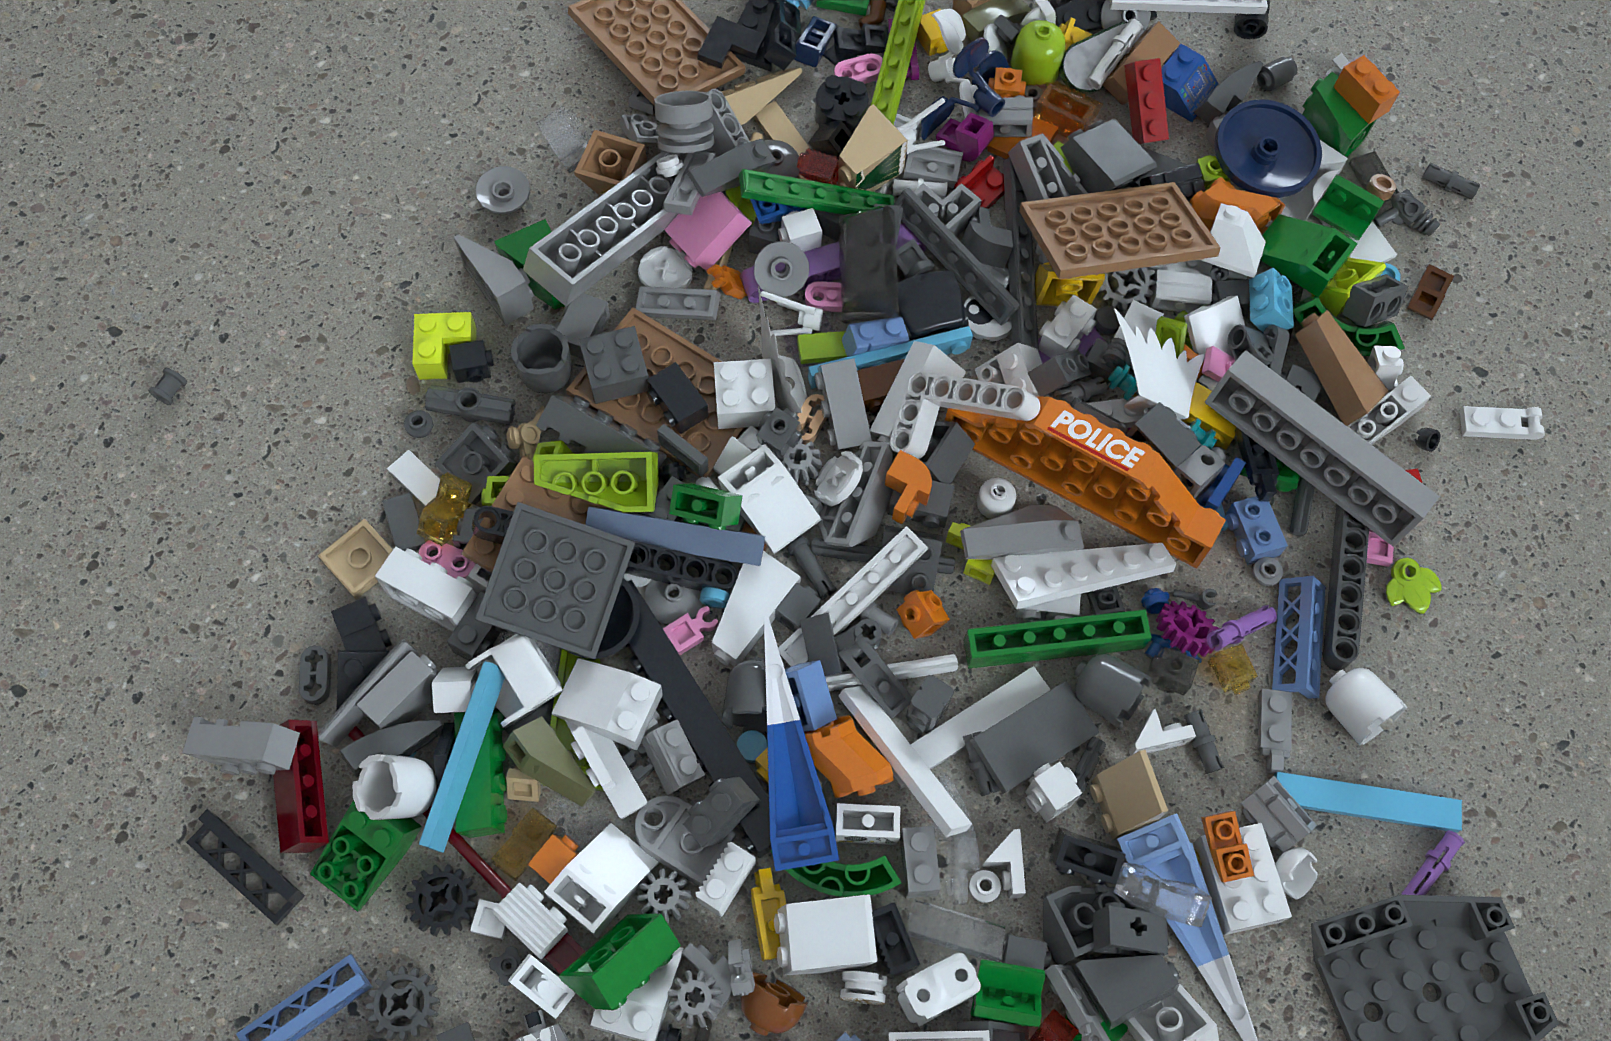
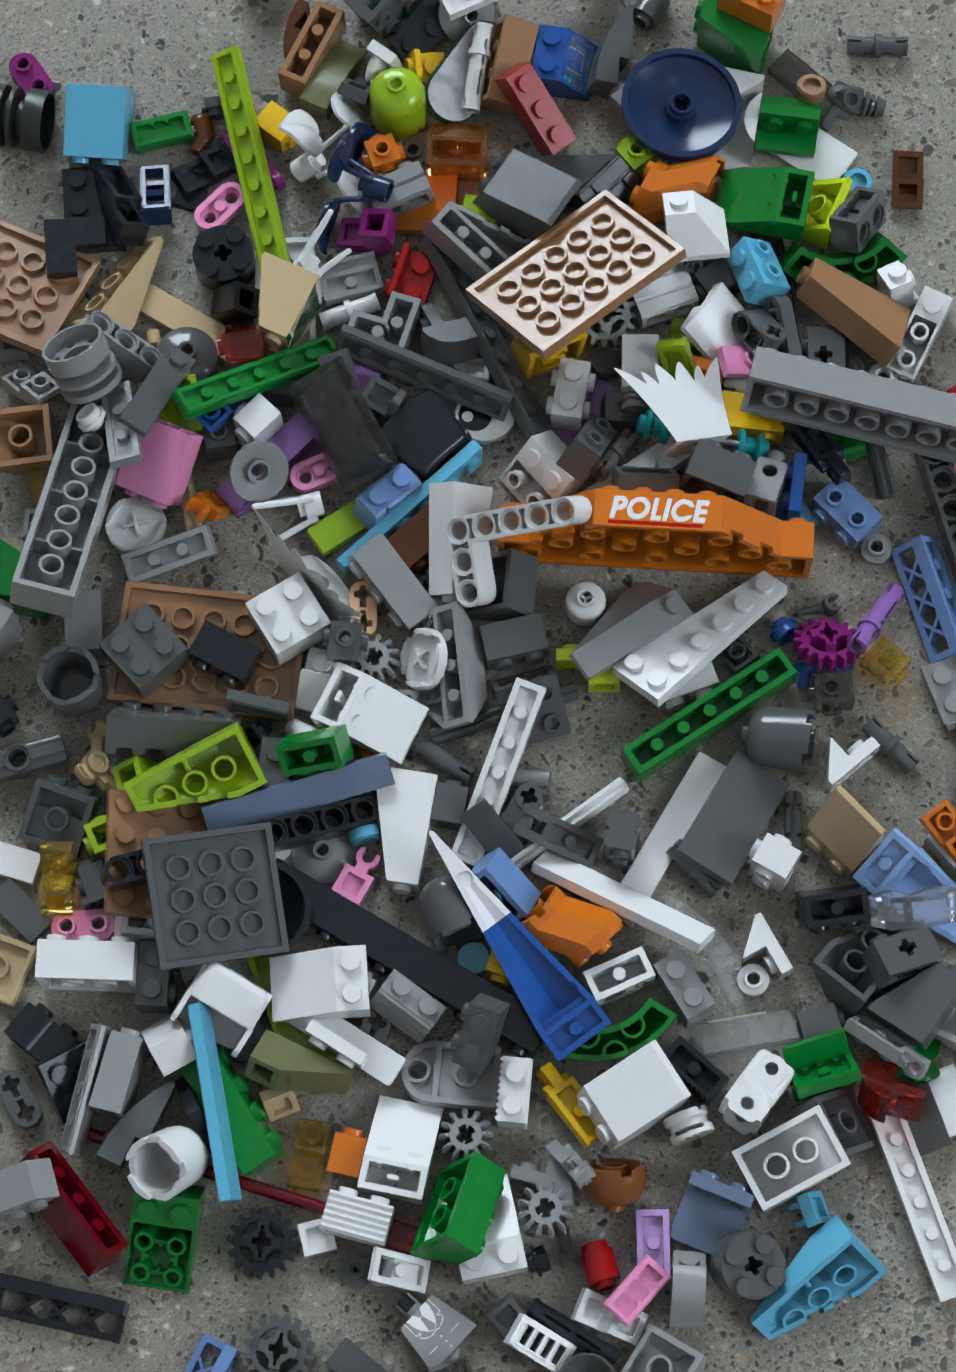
camera: 20 degrees left, 5 degrees up
(910, 479) = (497, 627): orange brick -> none
(922, 613) = (570, 752): orange brick -> none

